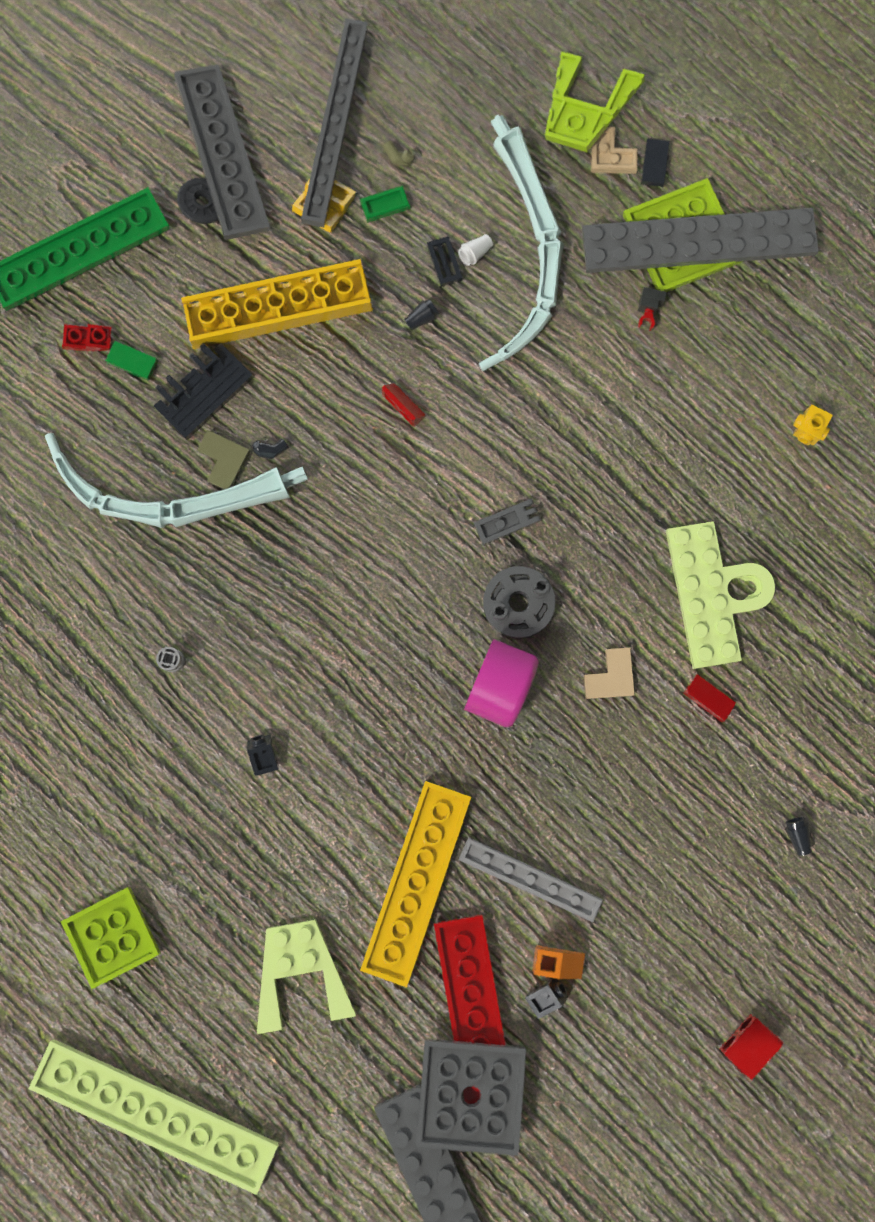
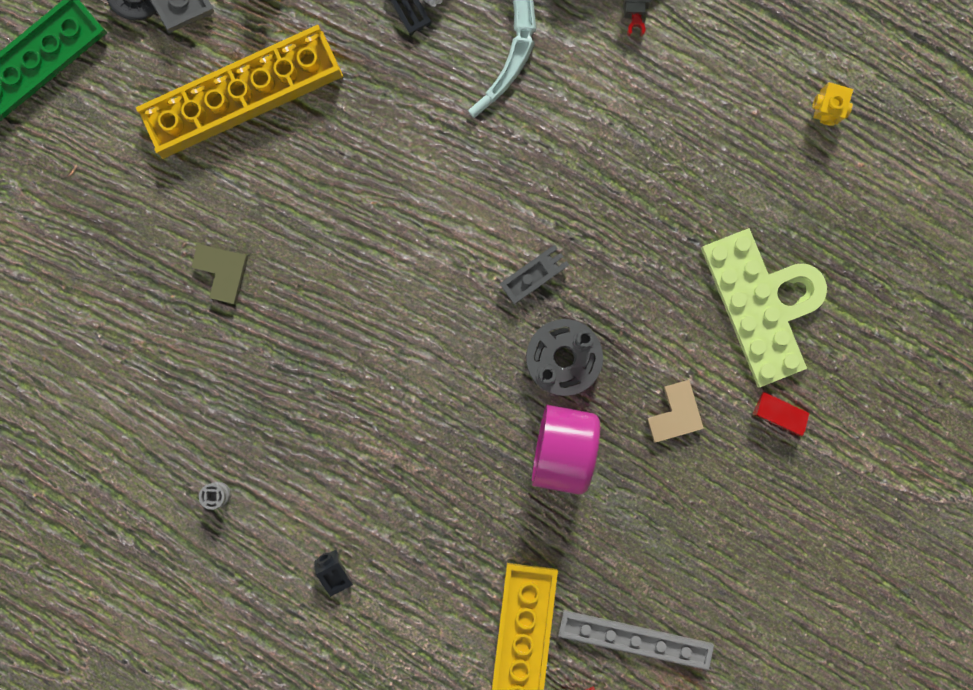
camera: 10 degrees left, 5 degrees up
(86, 338) = (45, 171): red slope -> none
(131, 360) = (99, 185): green tile -> none
(205, 392) = (185, 203): black hinge -> none
(259, 490) = (267, 296): light aqua animal -> none
(267, 450) = (267, 252): black arm -> none
(403, 404) = (398, 171): red slope -> none
(422, 314) = (396, 71): black cone -> none
(799, 834) = (901, 536): black cone -> none

